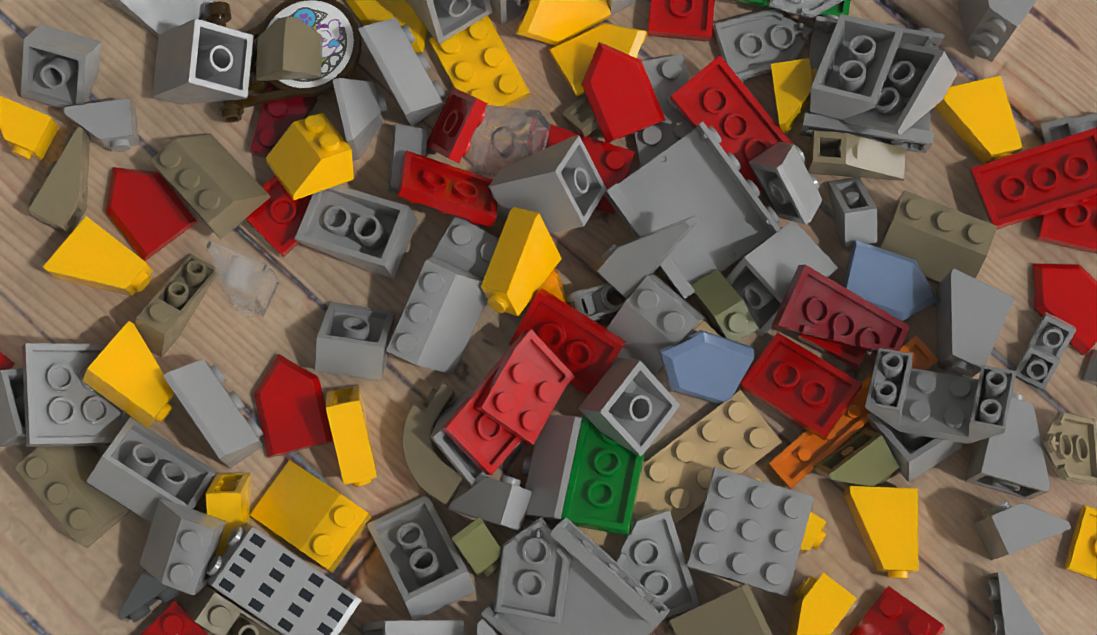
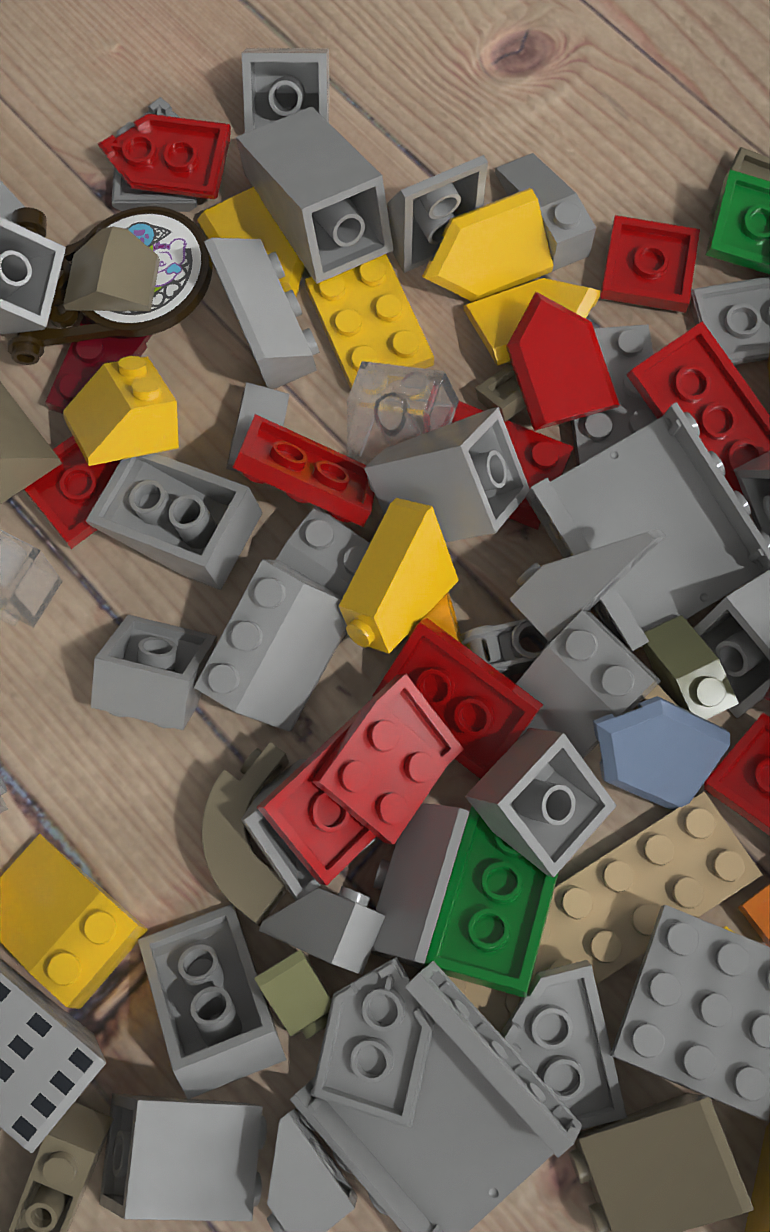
camera: 10 degrees right, 5 degrees down
(291, 409) = (53, 761): red tile -> none
(351, 435) = (129, 806): yellow slope -> none
(359, 111) = (197, 362): light grey slope -> none
(456, 125) = (329, 383): red plate -> none

